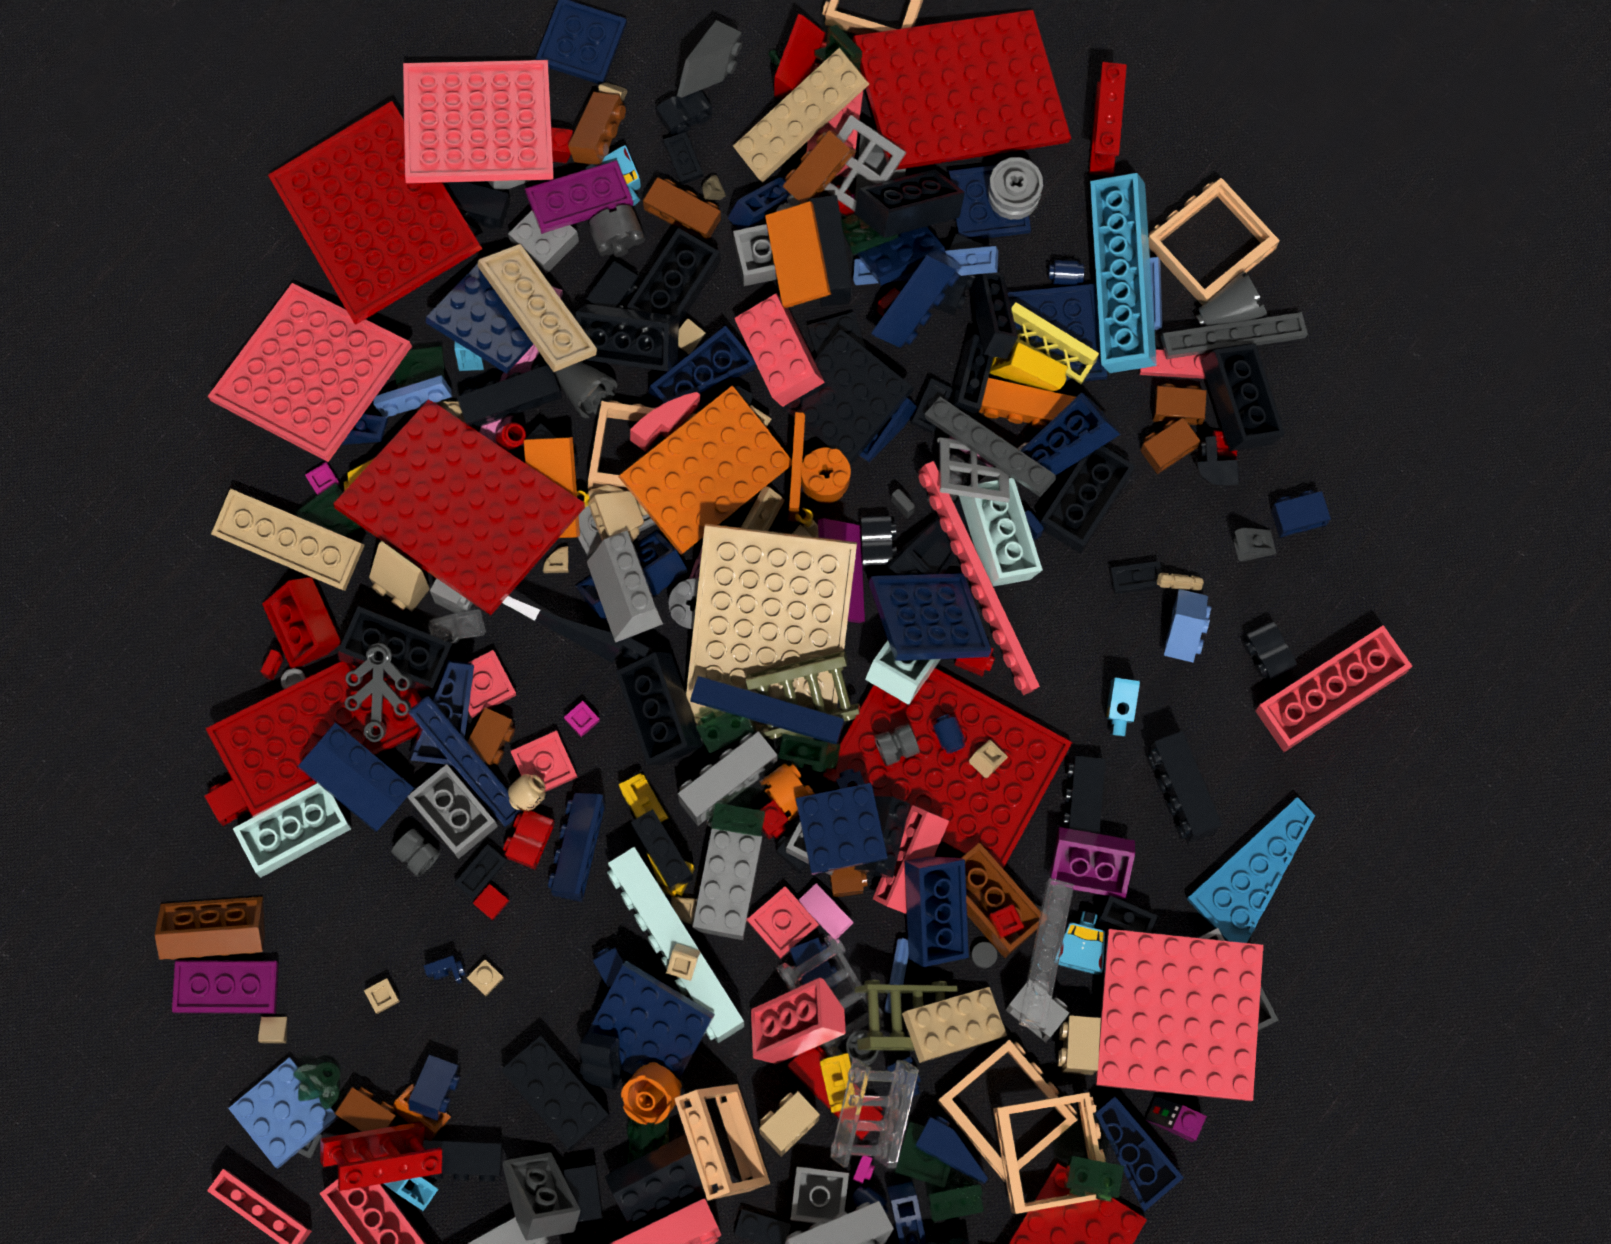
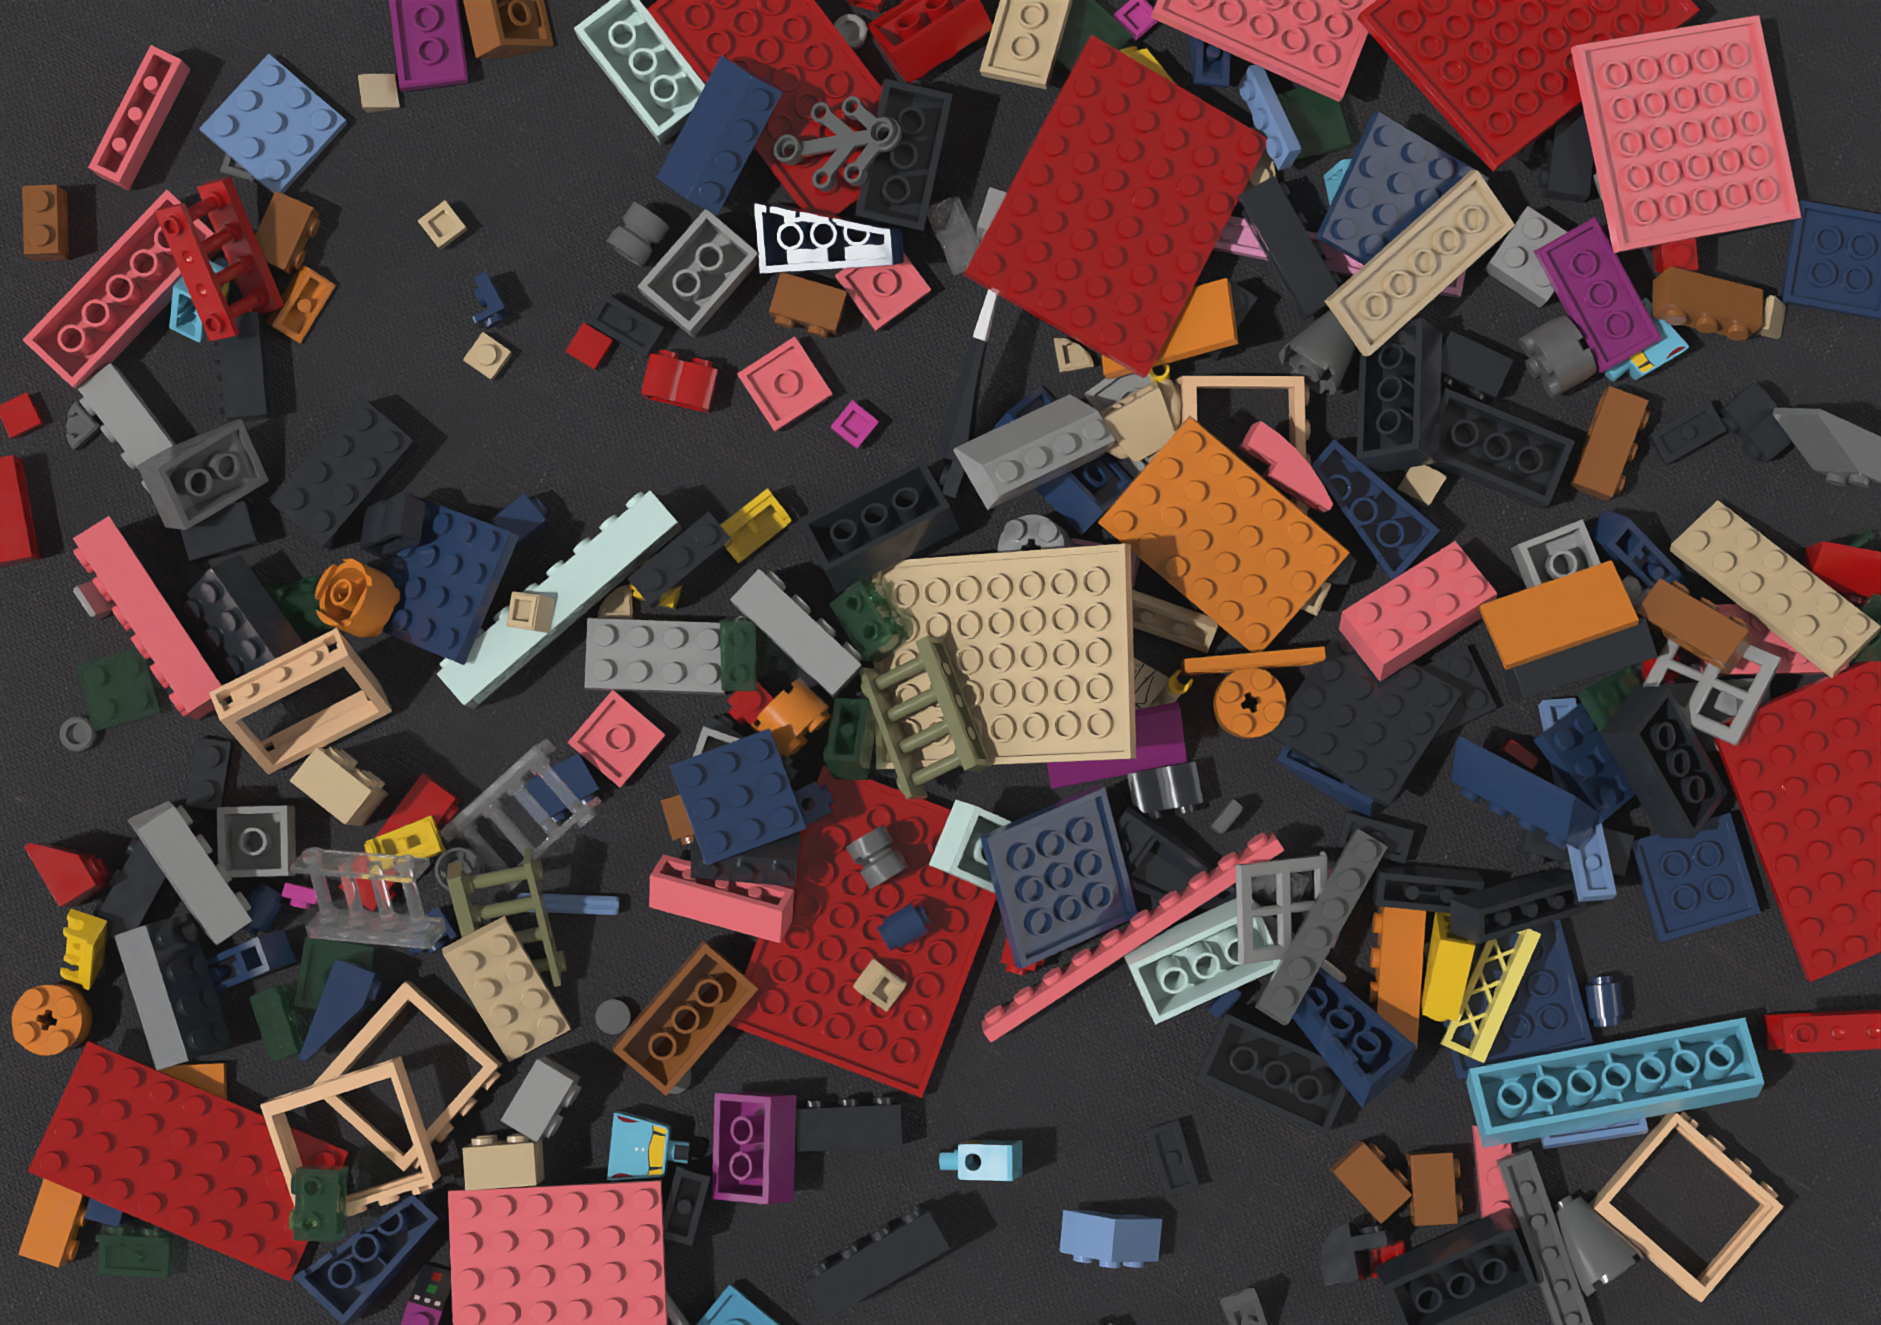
camera: 85 degrees right, 10 degrees up
(316, 1085) = (310, 161): clear green plate -> none
(397, 578) = (1006, 143): tan slope -> none
(434, 1087) = (329, 314): dark blue brick -> none
(464, 759) = (766, 277): dark blue tile -> none
(516, 433) = (1235, 269): red brick -> none
(527, 792) = (736, 367): tan head -> none
(578, 846) = (676, 448): dark blue slope -> none
(712, 189) = (1647, 482): dark tan tile -> none
(767, 710) = (891, 672): dark blue tile -> none
(796, 1022) = (473, 776): coral slope -> none
(825, 911) = (639, 794): bright pink slope -> none
(936, 910) = (655, 943): dark blue slope -> none
(1006, 921) = (652, 1040): red tile -> none
(1015, 188) = (1736, 910): light grey wheel -> none
(1046, 954) = (612, 1100): clear plate -> none
(1179, 581) = (1173, 1219): tan axle -> none

